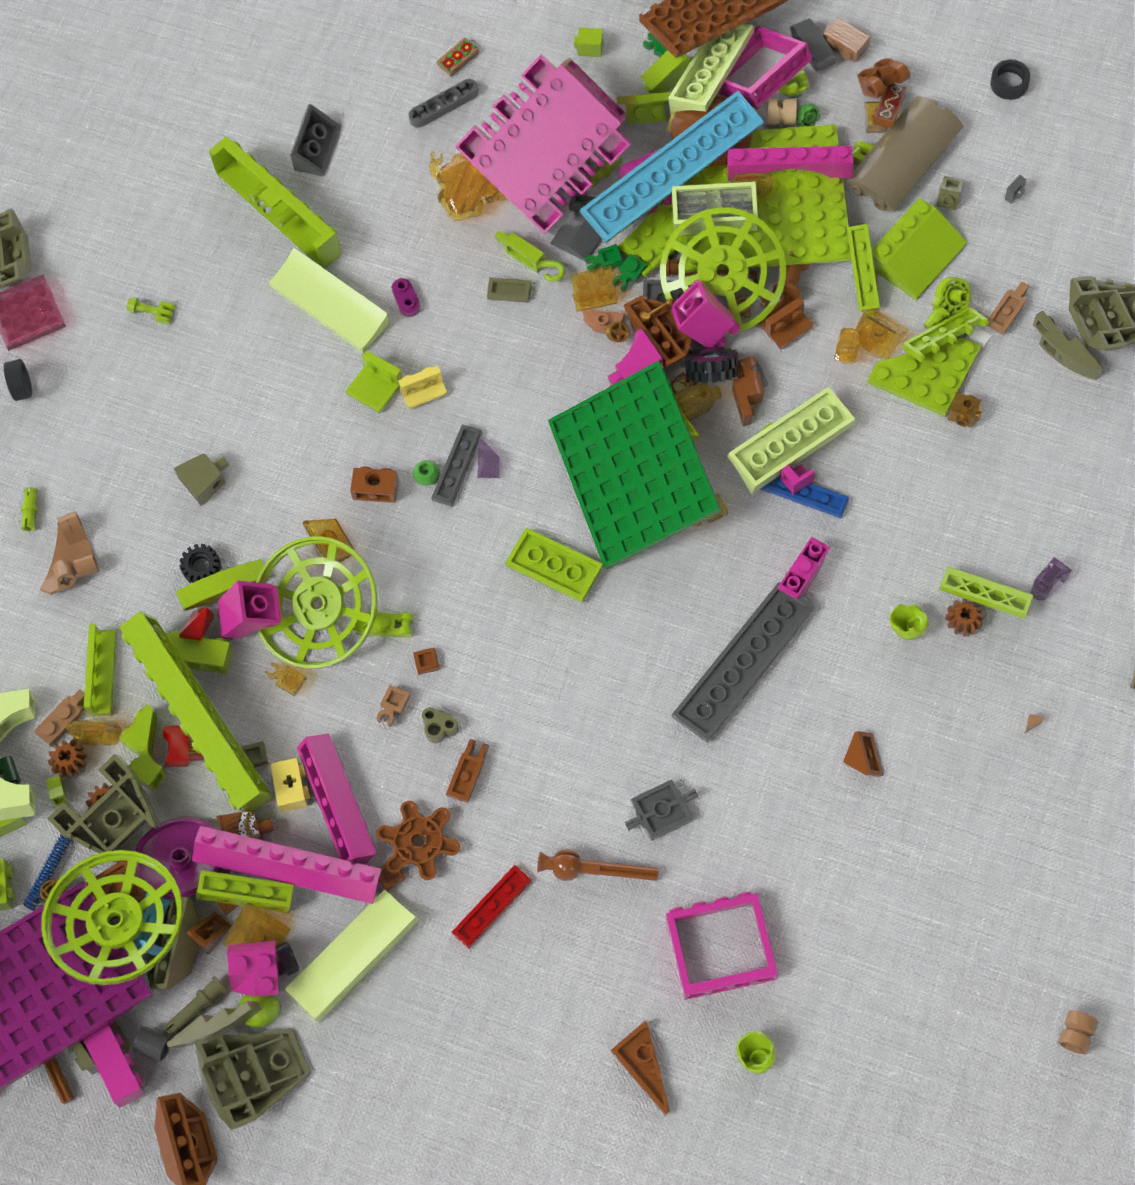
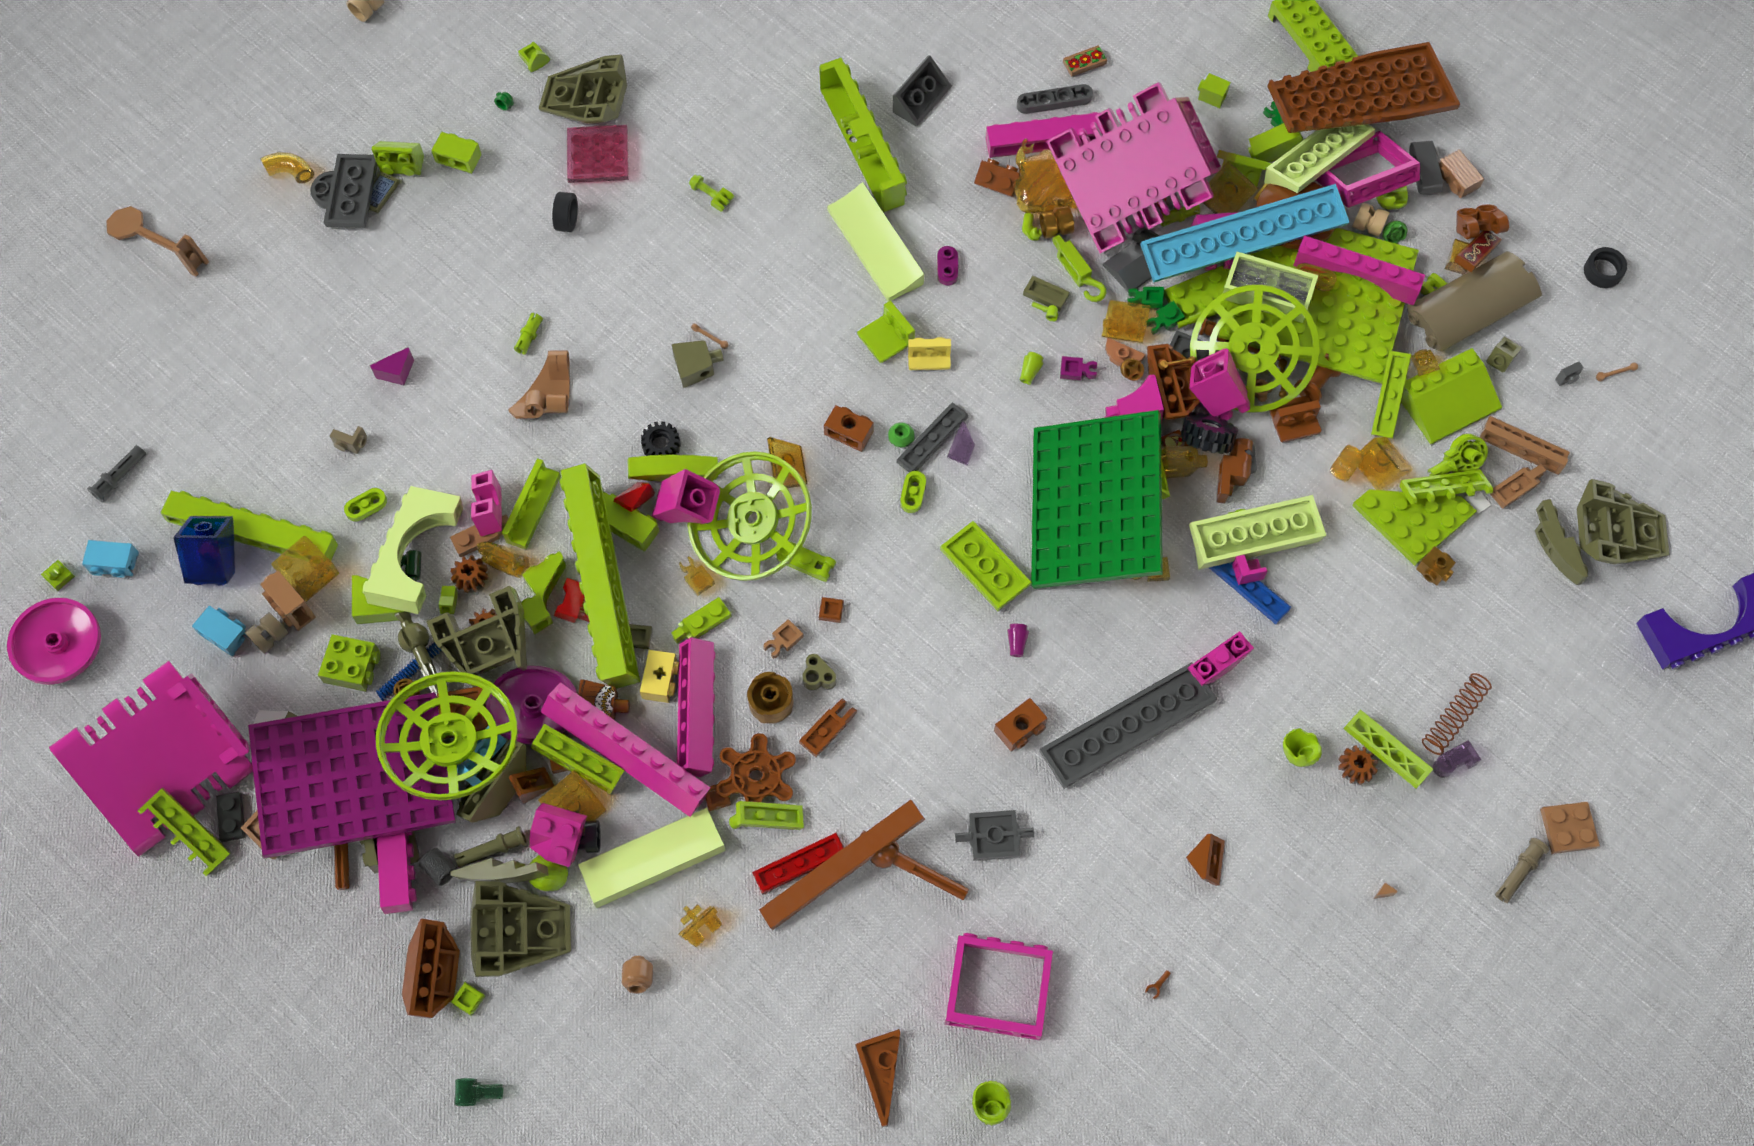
camera: 15 degrees right, 0 degrees up
(40, 840) = (414, 639): none -> olive piece
(59, 686) = (488, 509): none -> dark pink arch
(189, 444) = (724, 344): none -> medium nougat hinge
(231, 1155) = (468, 999): none -> lime tile
(308, 718) = (702, 621): none -> lime hinge
(382, 1068) = (637, 974): none -> medium nougat head
(403, 752) = (779, 689): none -> pearl gold brick
(416, 155) = (1008, 138): none -> dark pink brick
(417, 1009) = (691, 931): none -> clear yellow hips
(419, 197) = (996, 177): none -> dark orange bracket
(444, 874) = (767, 815): none -> lime piece
(459, 523) = (913, 493): none -> lime plate
(468, 235) = (1028, 228): none -> lime arm
(491, 220) = (1058, 222): none -> pearl gold wheel
(520, 304) = (1052, 311): none -> lime hand
(522, 363) = (1031, 365): none -> lime cone
(532, 891) = (841, 864): none -> dark orange tile
(563, 351) = (1074, 368): none -> magenta plate
(611, 621) = (1017, 639): none -> magenta cone
(643, 131) = (1230, 190): none -> clear yellow slope
(646, 687) = (1025, 713): none -> dark orange brick
(863, 886) = (1158, 984): none -> dark orange hand
(882, 226) = (1424, 362): none -> clear yellow plate
(1000, 269) = (1524, 445): none -> medium nougat fence
(1033, 536) = (1475, 685): none -> dark orange piece
(1044, 180) = (1601, 376): none -> medium nougat hinge

